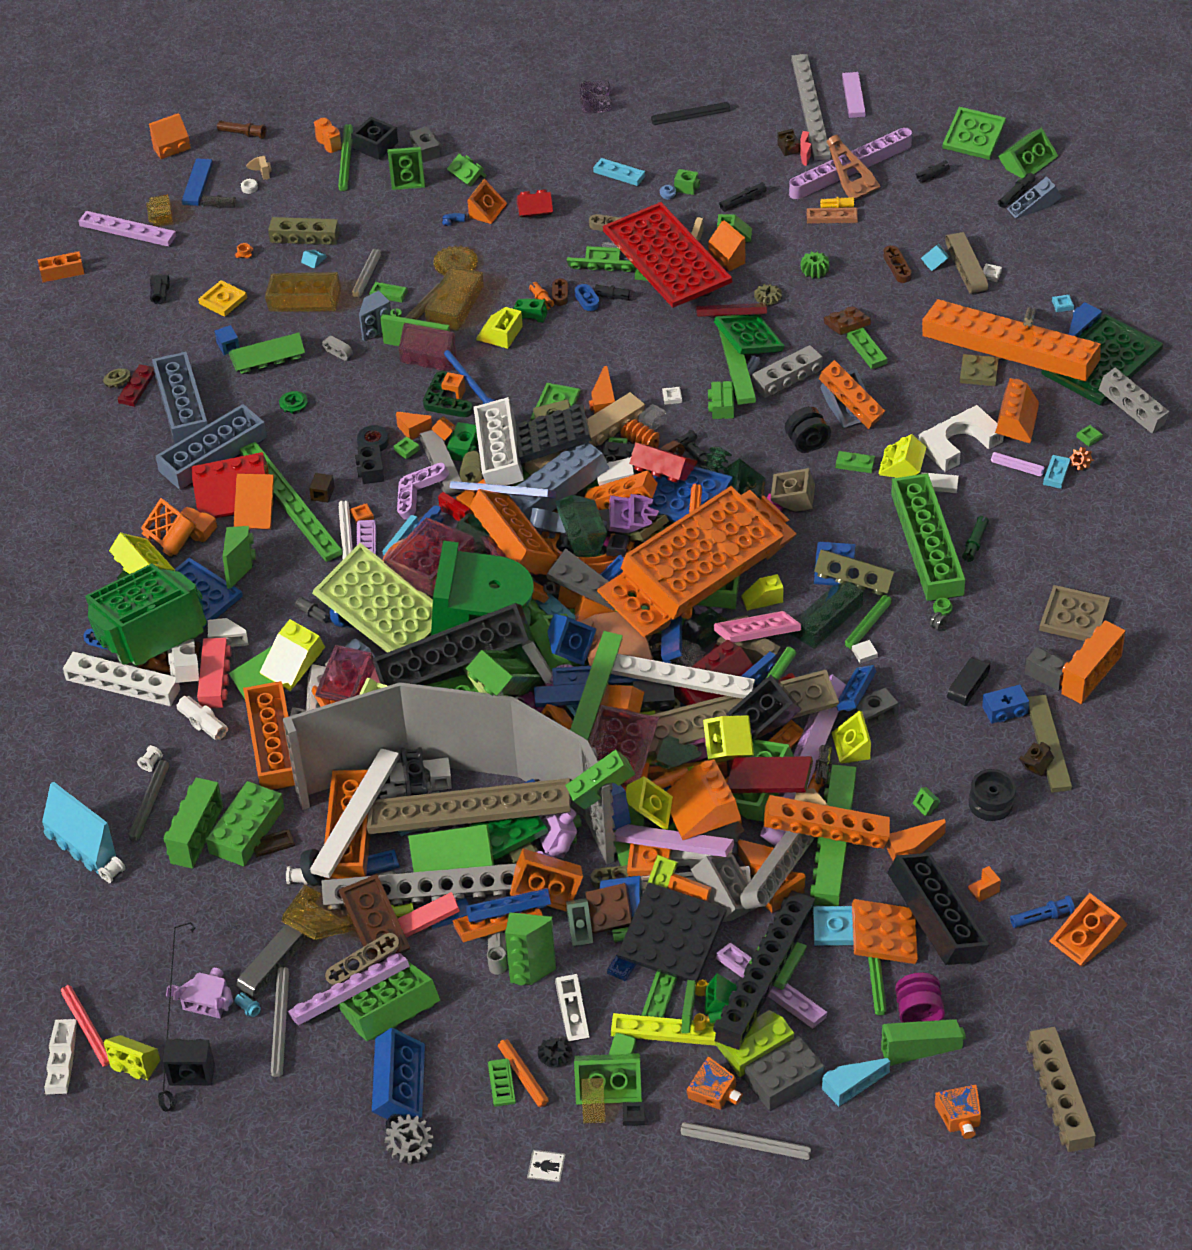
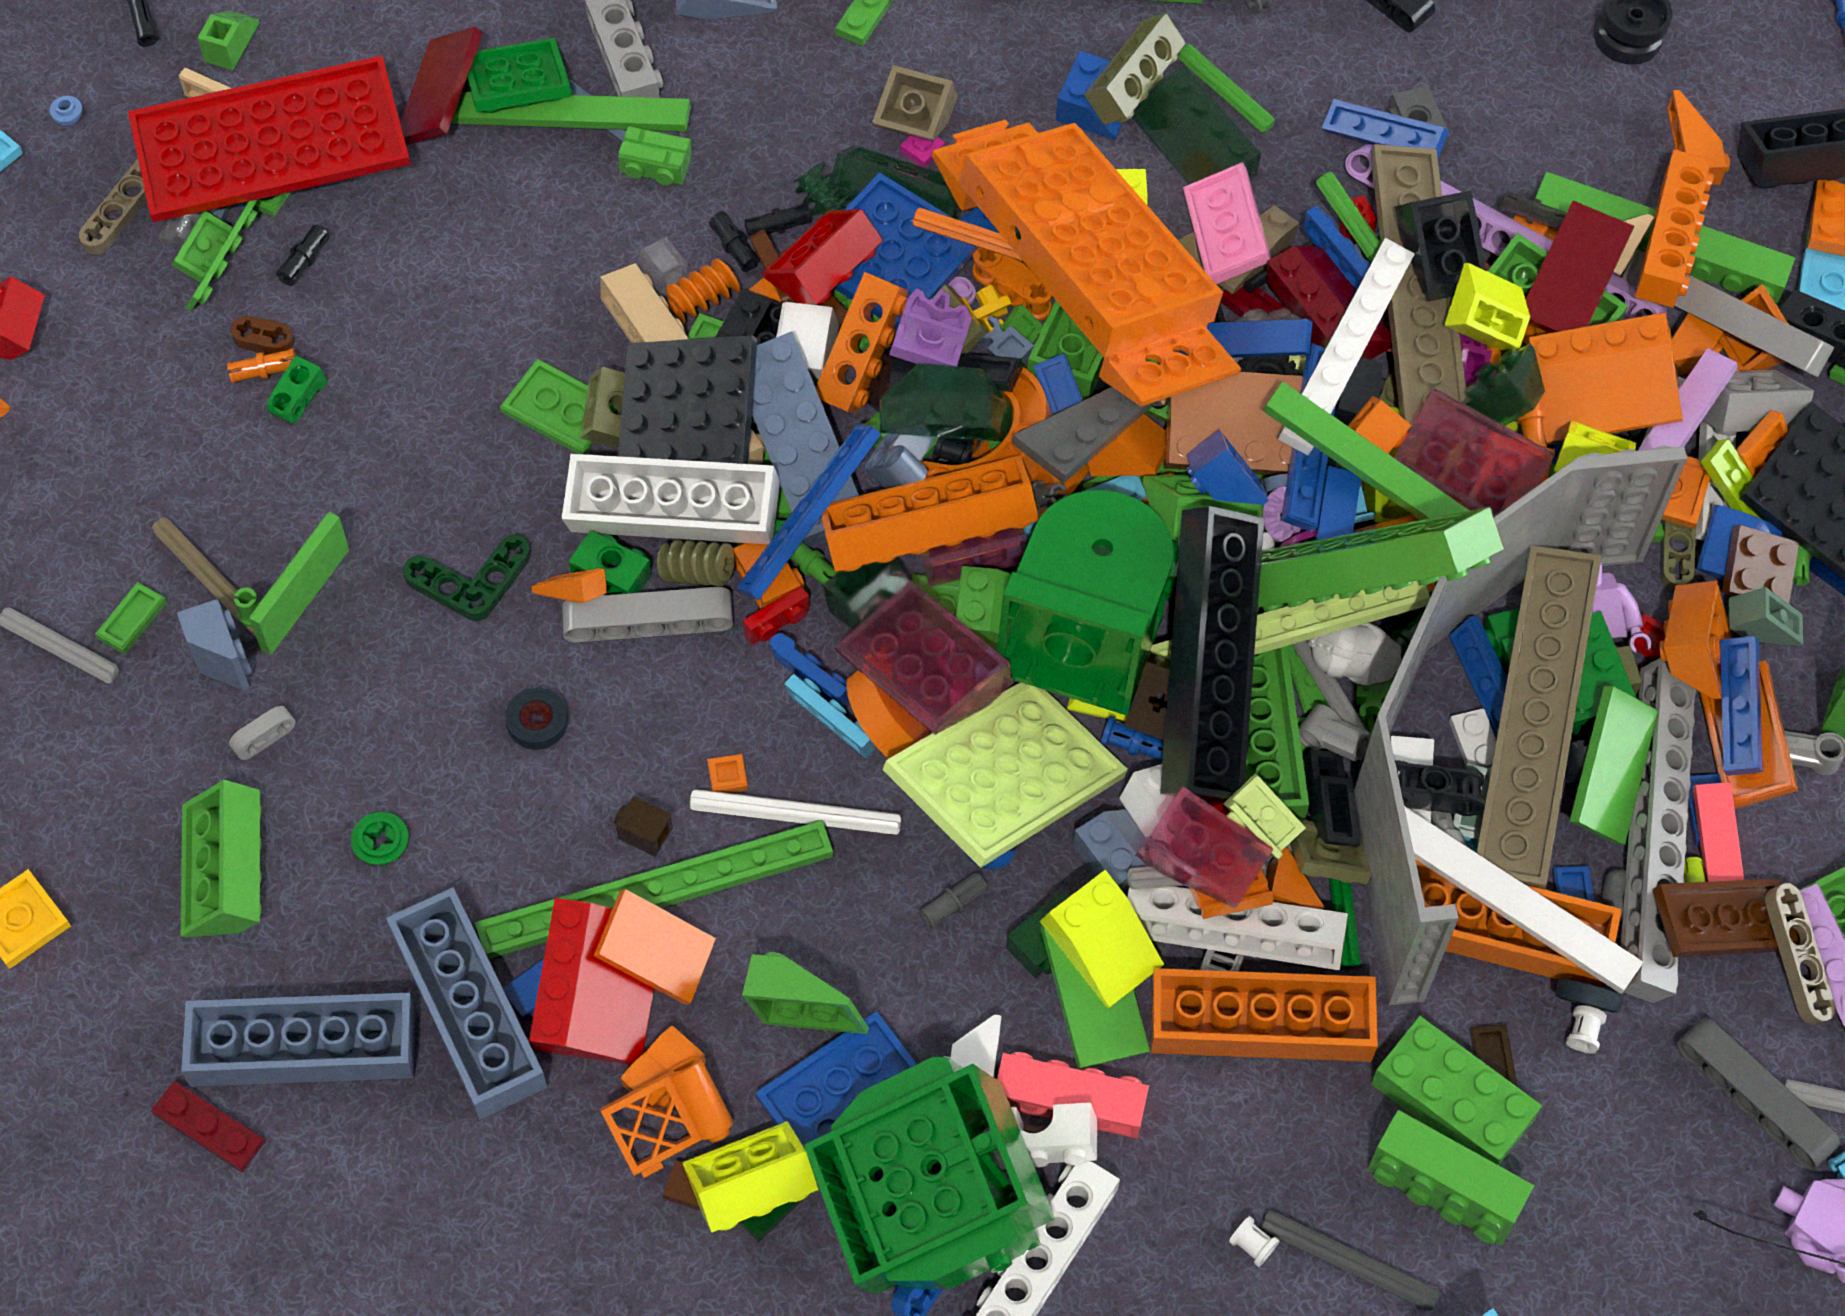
camera: 80 degrees left, 15 degrees up
(117, 378) = (170, 1145): olive gear -> none
(202, 718) = (1176, 1133): white piece -> none
(226, 339) = (153, 929): blue brick -> none
(303, 292) = (79, 762): clear yellow brick -> none
(312, 919) = (1703, 1020): clear yellow wing -> none
(366, 533) = (793, 762): lavender slope -> none
(370, 464) = (613, 724): black brick -> none
(406, 448) = (586, 665): bright green plate -> none
(412, 482) = (700, 676): lavender beam -> none
(413, 424) = (531, 643): orange slope -> none
(426, 346) = (342, 574): clear pink slope -> none
(454, 383) = (458, 549): orange panel -> none
(455, 297) = (213, 504): clear yellow brick -> none
(465, 256) = (113, 496): clear yellow gear -> none
(467, 377) = (525, 507): blue piece -> none
(502, 328) = (329, 445): neon yellow slope -> none
(587, 297) = (301, 295): blue plate -> none
(602, 392) = (577, 326): orange slope -> none
(611, 769) = (1668, 437): bright green arch -> none
(672, 395) = (605, 228): white tile -> none
(686, 181) = (59, 73): bright green brick -> none
(727, 246) = (276, 46): orange slope -> none
(773, 297) = (409, 41): olive gear -> none
(807, 429) = (791, 49): black wheel -> none
(852, 740) = (1477, 163): neon yellow slope -> none
(864, 651) = (1287, 109): white tile -> none
(926, 801) = (1619, 108): bright green tile -> none
(987, 886) = (1791, 81): orange panel -> none

